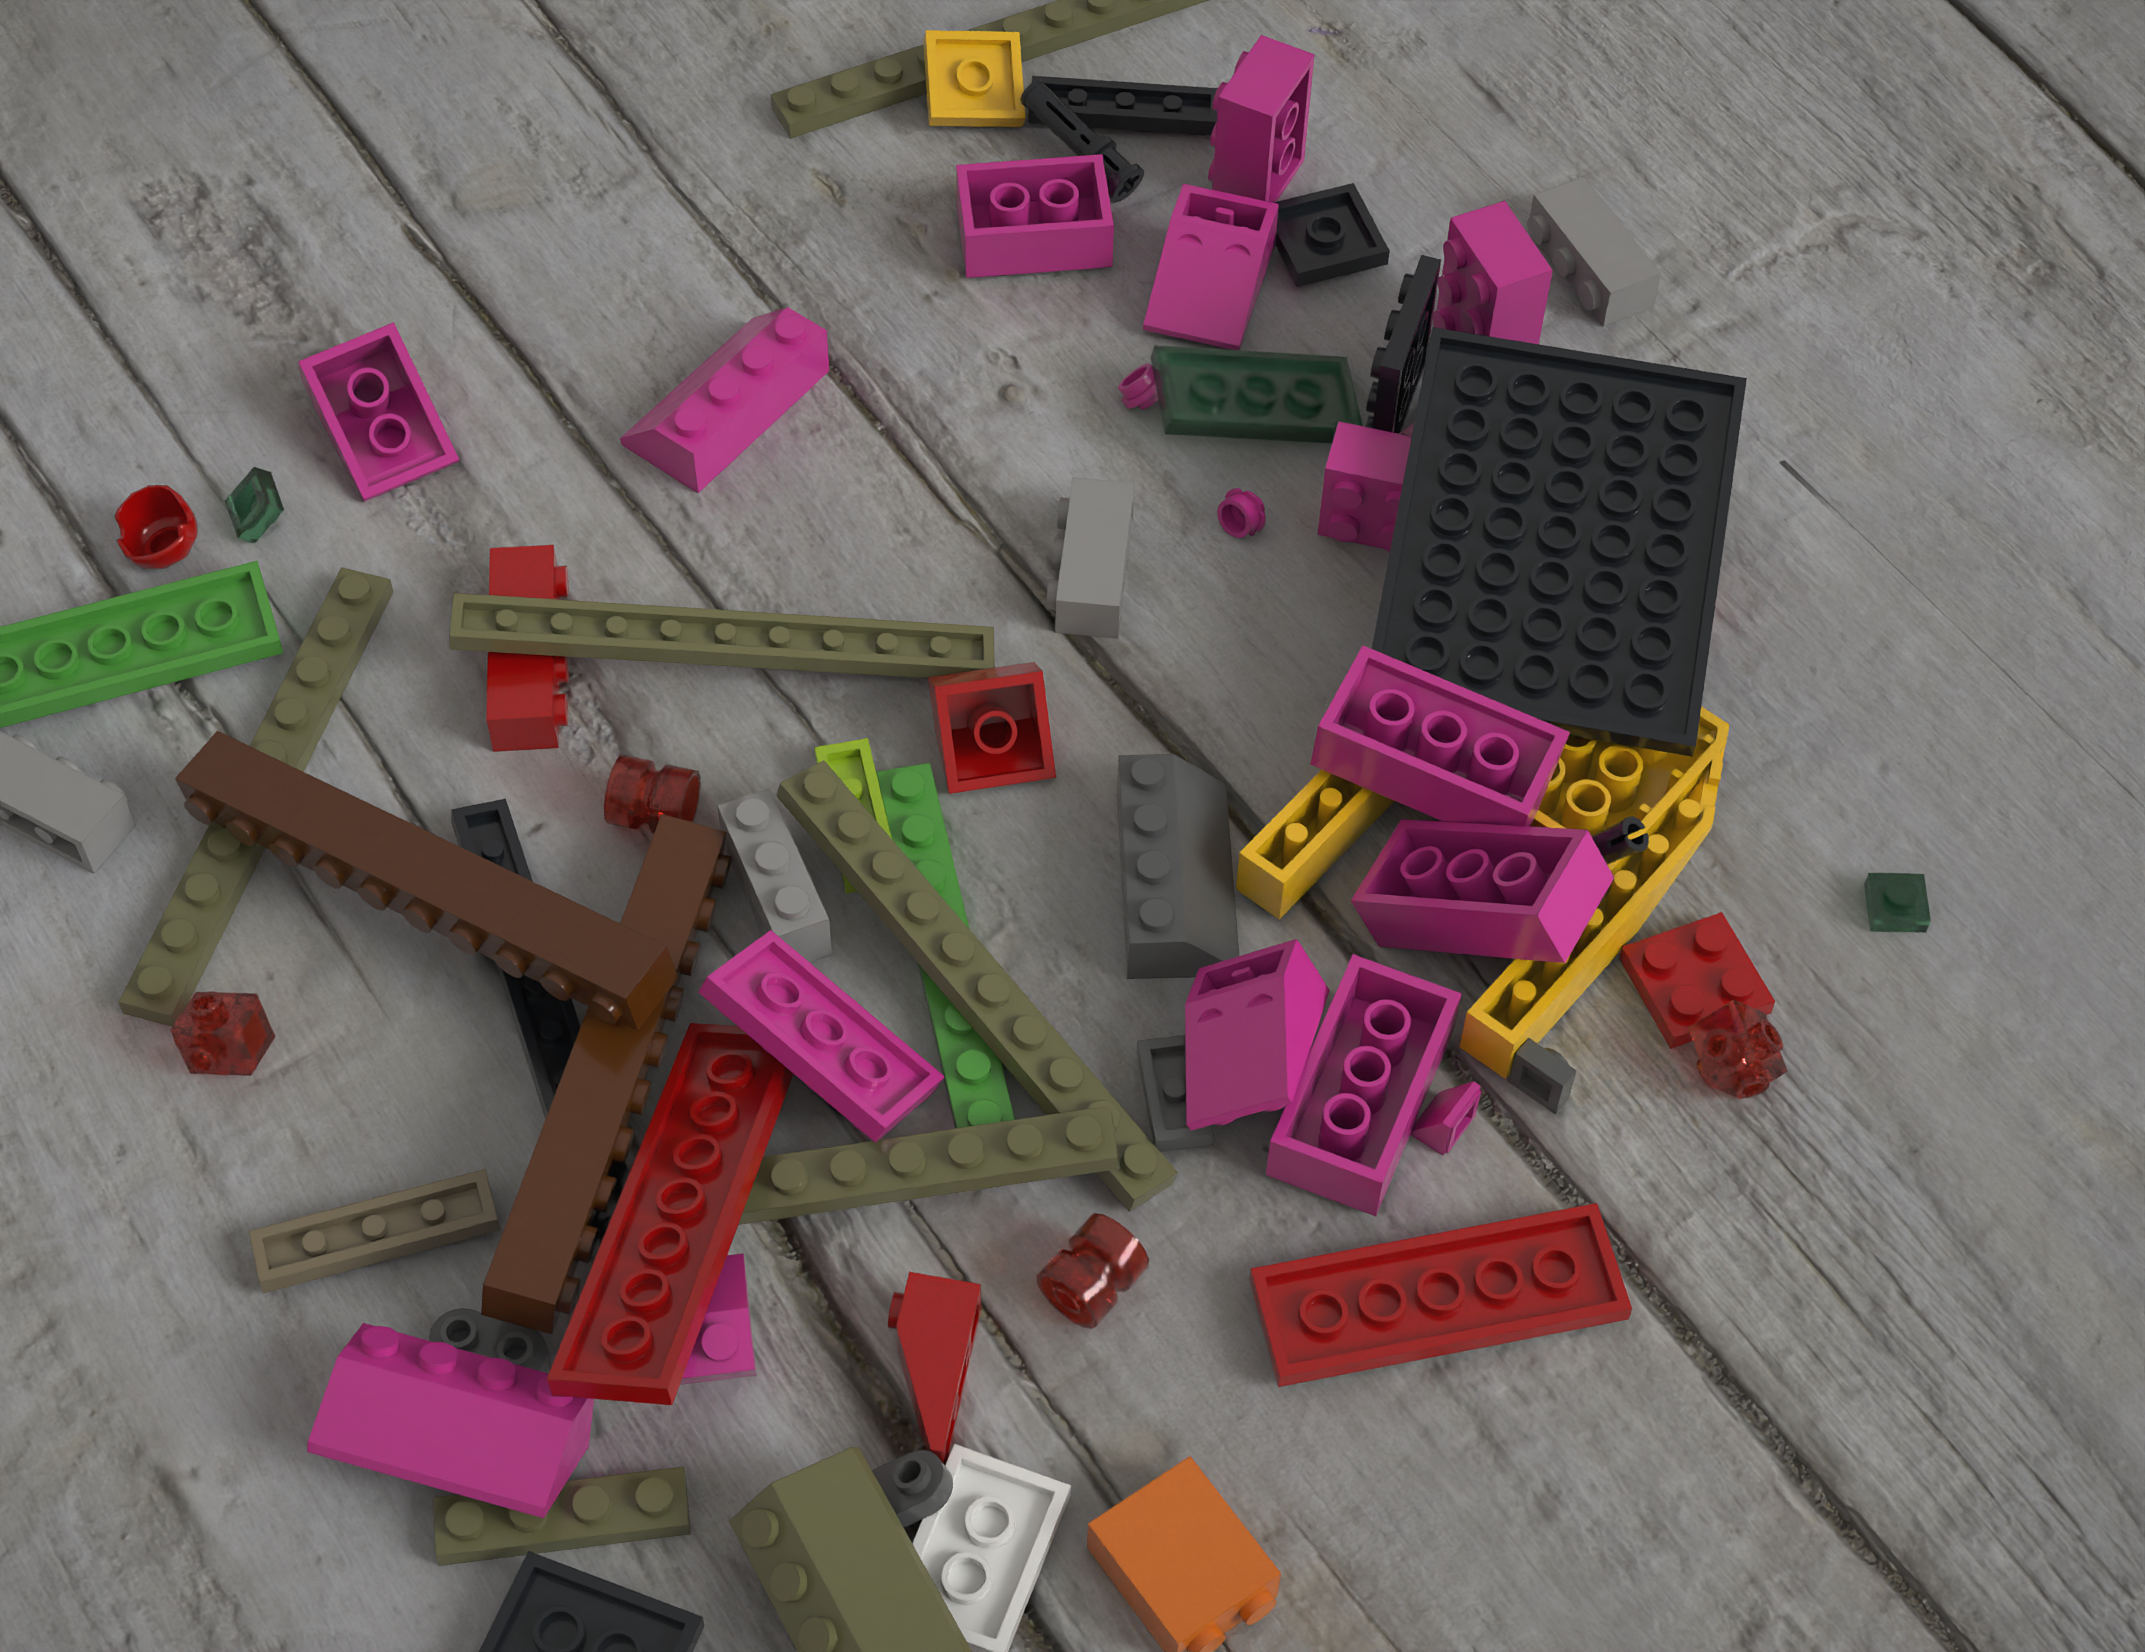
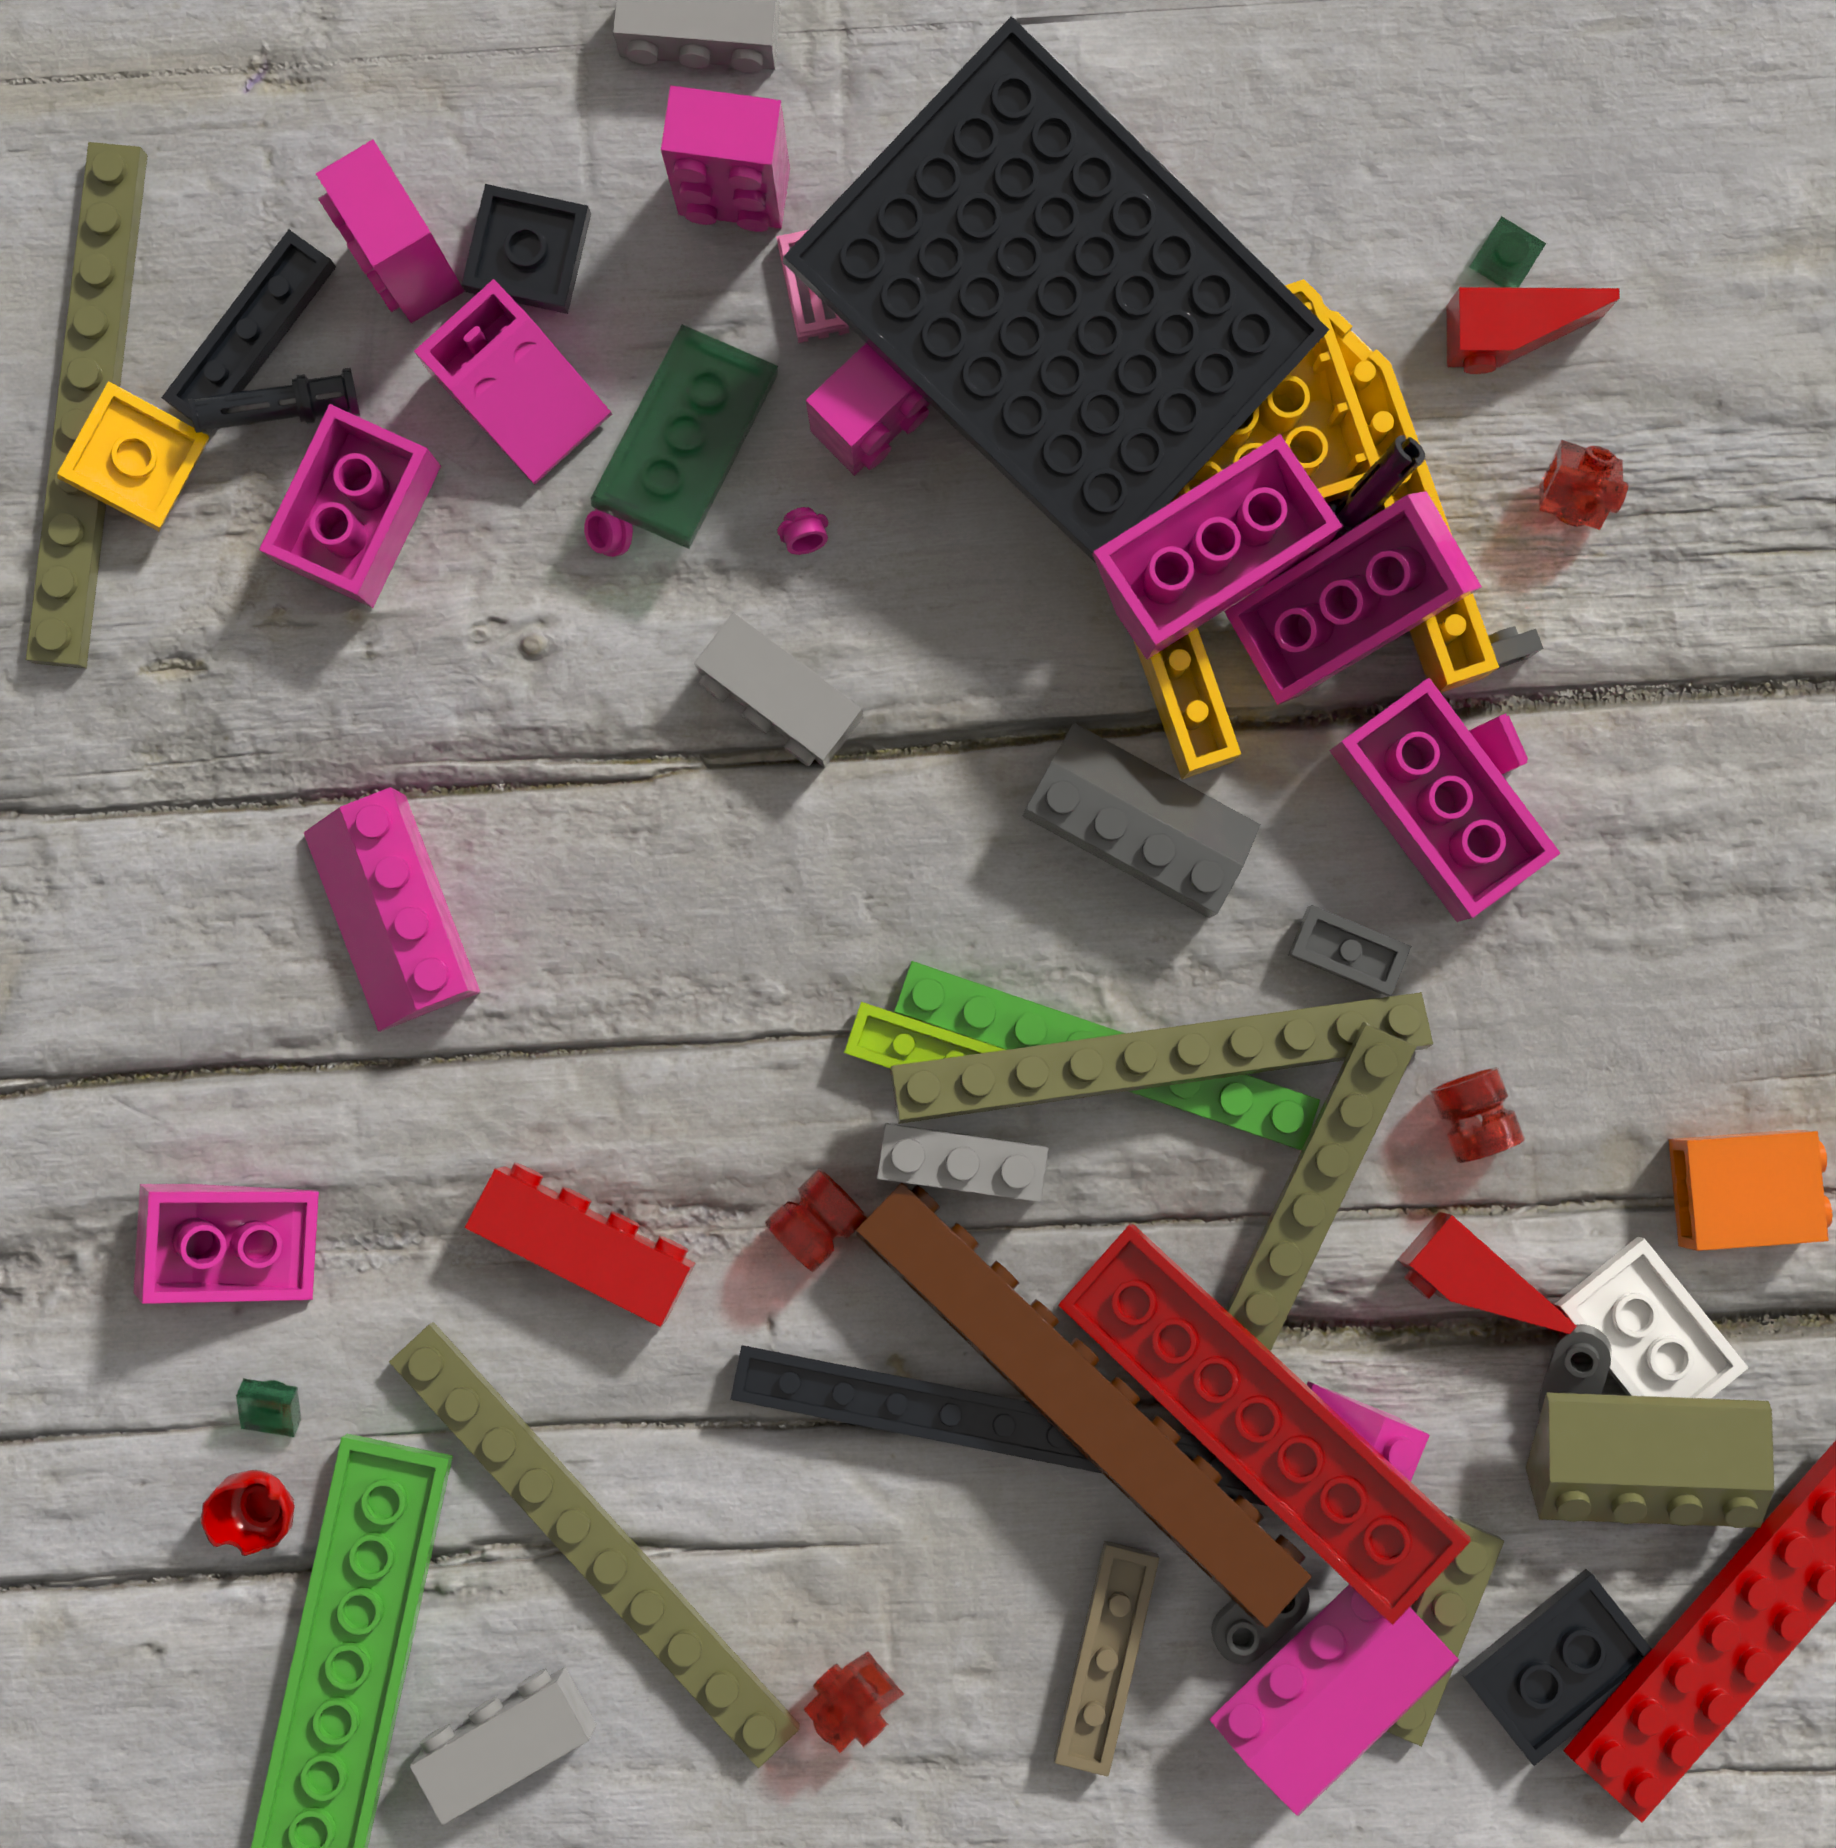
camera: 60 degrees left, 30 degrees up
(428, 881) = (820, 1477): reddish brown brick -> none
(717, 637) = (688, 1078): olive plate -> none
(821, 1035) = (1156, 1216): dark pink plate -> none
(992, 727) = (906, 886): red slope -> none
(1250, 1033) = (1368, 873): dark pink slope -> none
(1404, 358) = (762, 296): black plate -> none
(1438, 1294) = (1642, 857): red plate -> none
(1693, 974) = (1485, 464): red plate -> none
(1841, 932) = (1503, 324): none -> red slope

